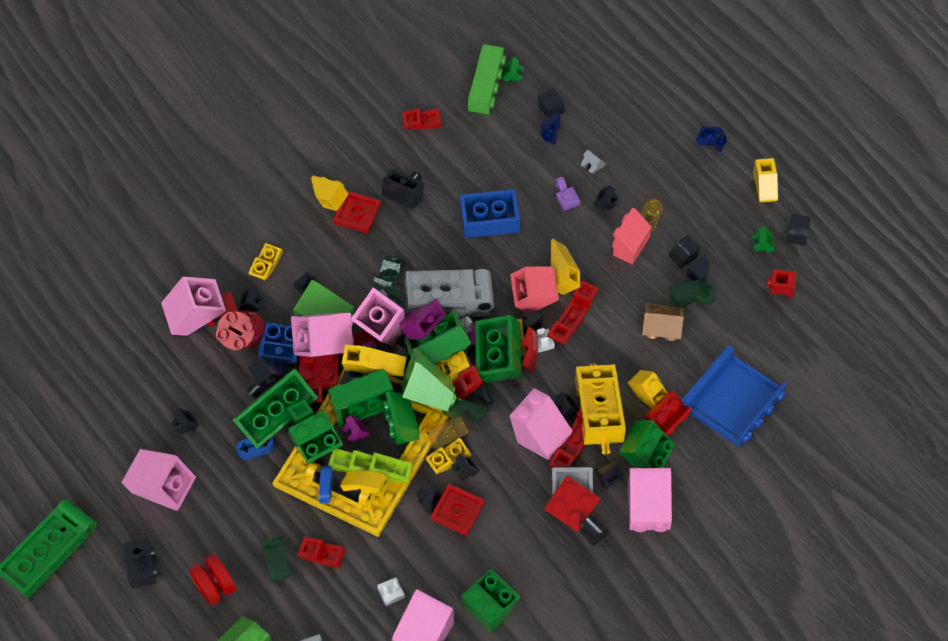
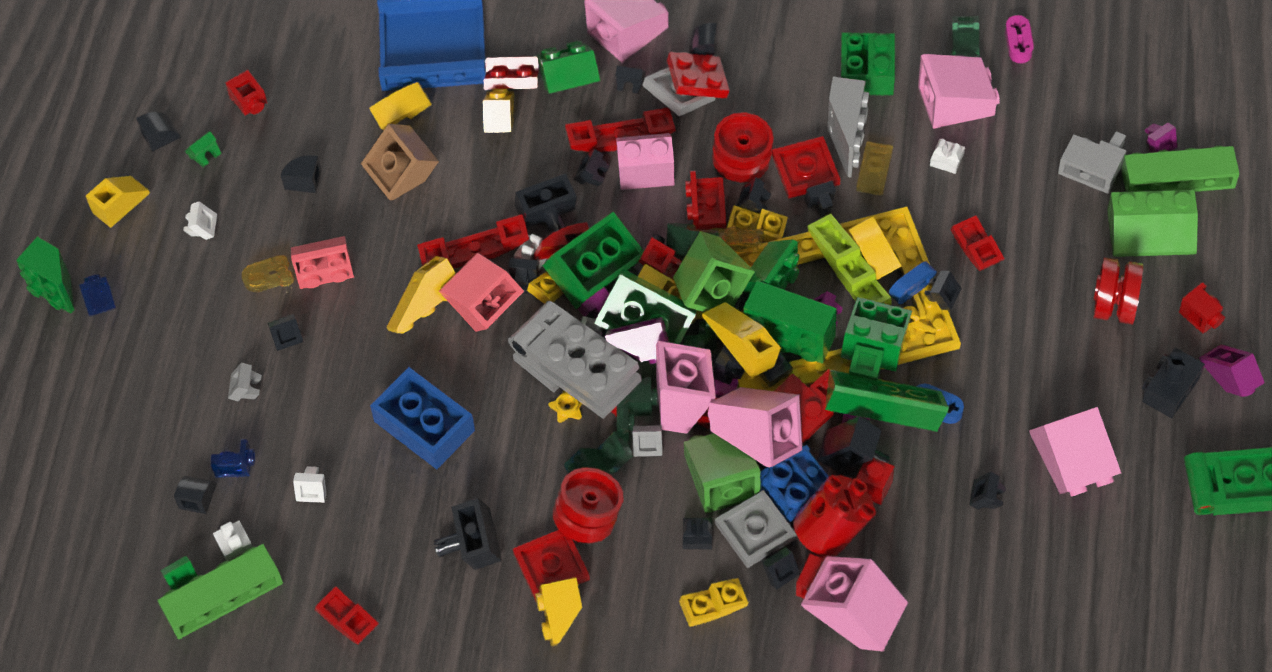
camera: 130 degrees left, 0 degrees up
(114, 599) = (1233, 370): none -> magenta slope
(160, 621) = (1202, 309): none -> red brick
(242, 373) = (878, 478): none -> red brick
(276, 559) = (1029, 270): clear green slope -> none
(278, 305) = (755, 529): none -> light grey plate
(305, 496) = (944, 290): none -> black tile
(365, 251) = (587, 505): none -> red wheel
(422, 546) = (874, 168): none -> clear yellow plate
(459, 545) = (847, 118): none -> light grey slope
(486, 440) = (707, 202): none -> red bracket
(499, 483) = (742, 147): none -> red wheel
(505, 149) = (310, 486): none -> white tile
(510, 104) = (232, 540): none -> white tile
(561, 362) = (546, 202): none -> black brick
(566, 197) = (316, 375): medium lavender plate -> none
(602, 421) = (543, 146): yellow brick -> none
(684, 251) = (288, 207): black brick -> none
(688, 292) = (341, 160): clear green slope -> none
(701, 348) = (399, 105): none -> yellow slope
(713, 208) = (201, 221): none -> white tile
(739, 118) = (47, 274): none -> green slope

